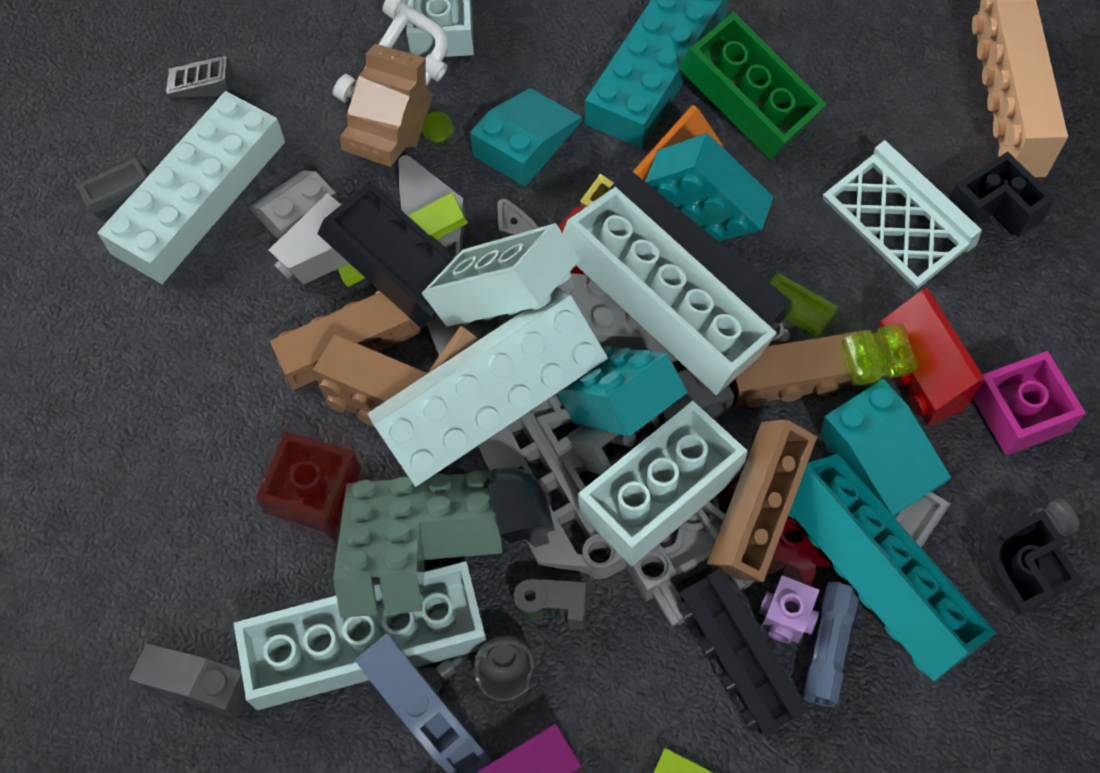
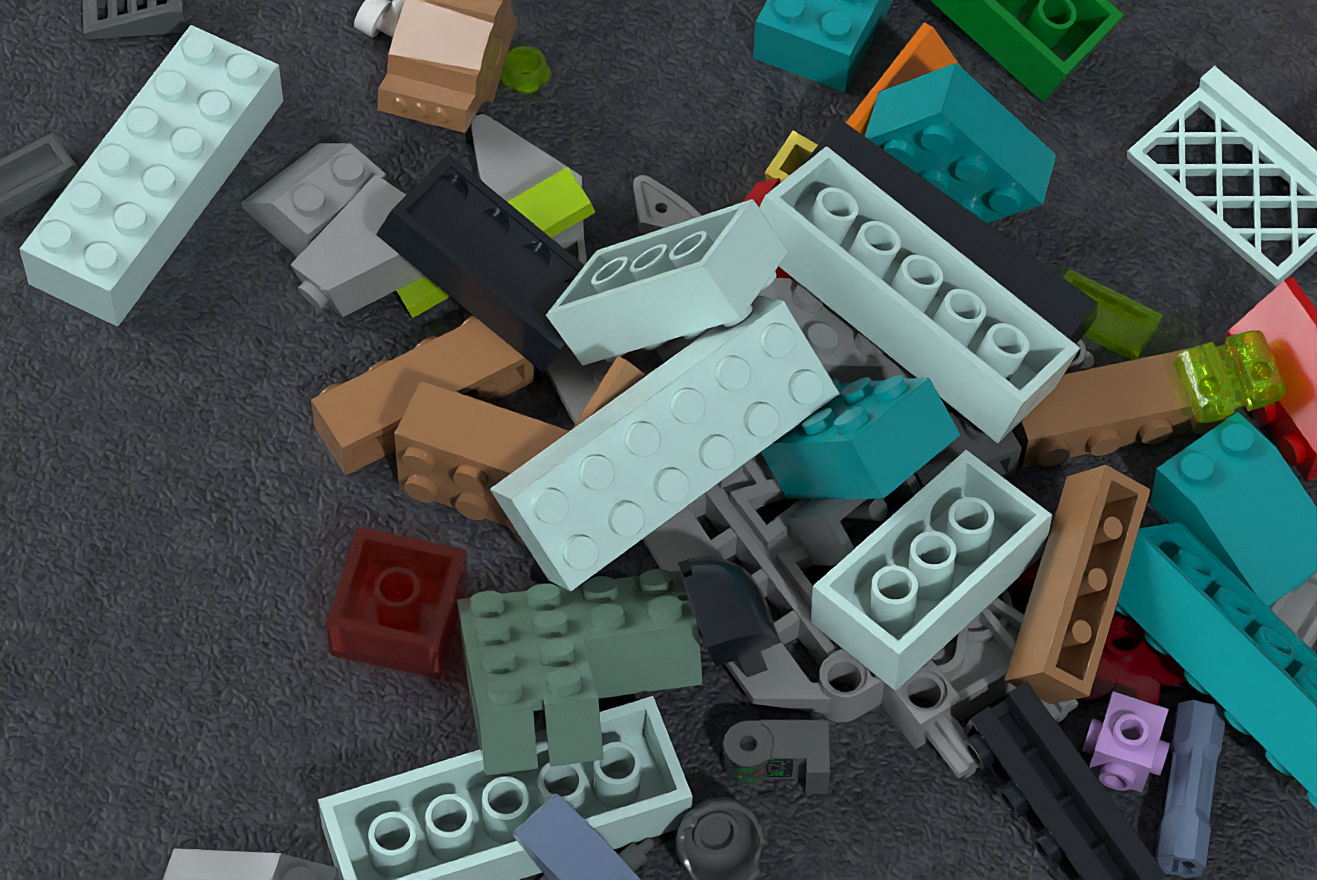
camera: 10 degrees left, 5 degrees down
(522, 134) = (659, 78): teal slope -> none

